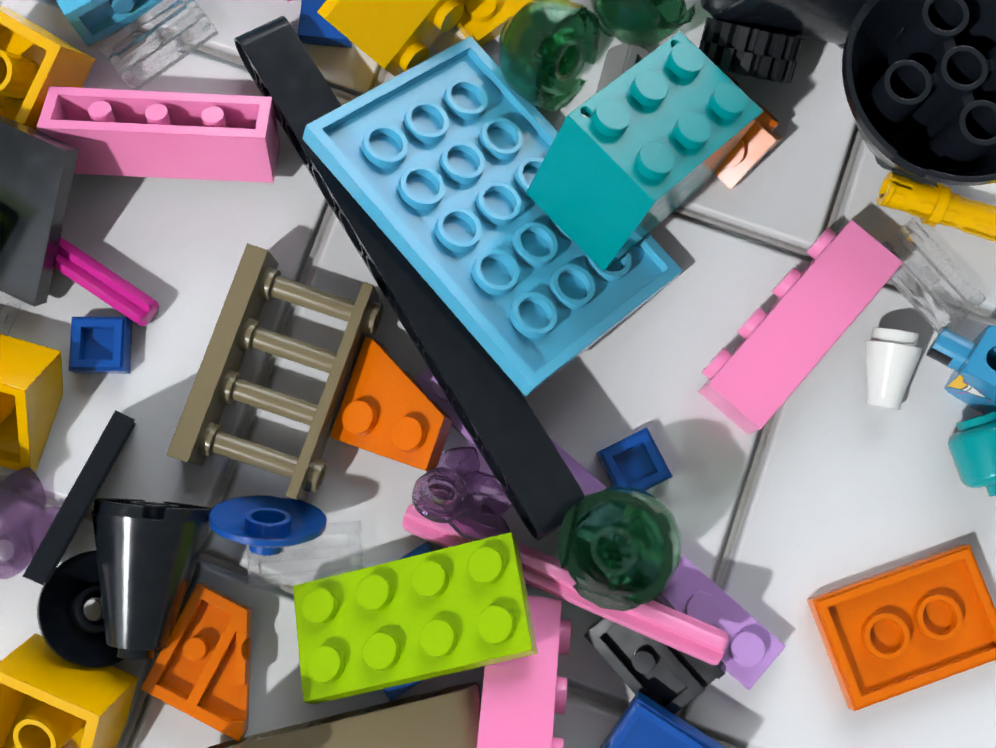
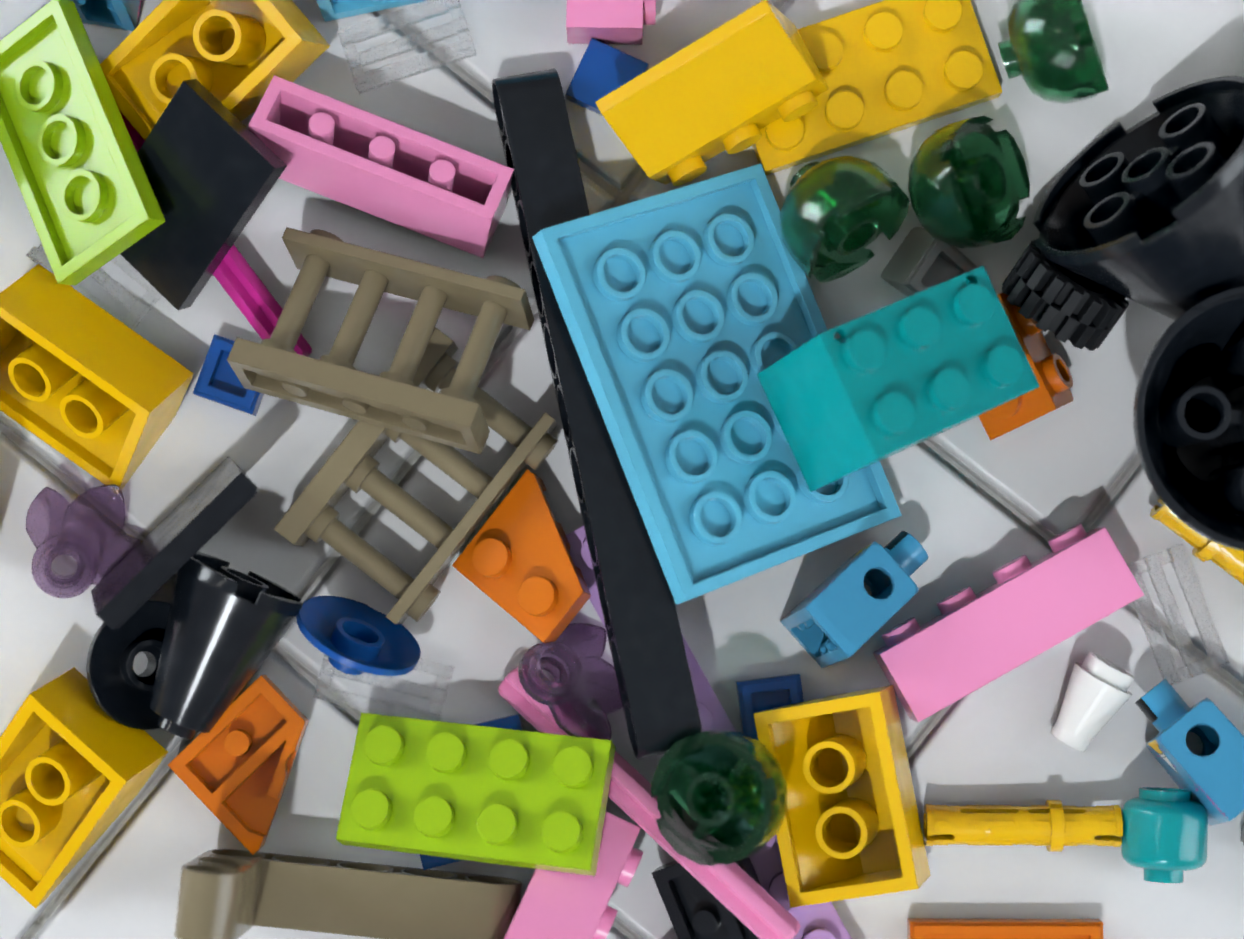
camera: 20 degrees right, 5 degrees up
(227, 308) = (391, 397): none -> dark tan fence
(671, 349) = (841, 612): none -> dark azure torso
(728, 513) = (849, 797): none -> yellow slope
(893, 480) = (1033, 825): none -> yellow pin

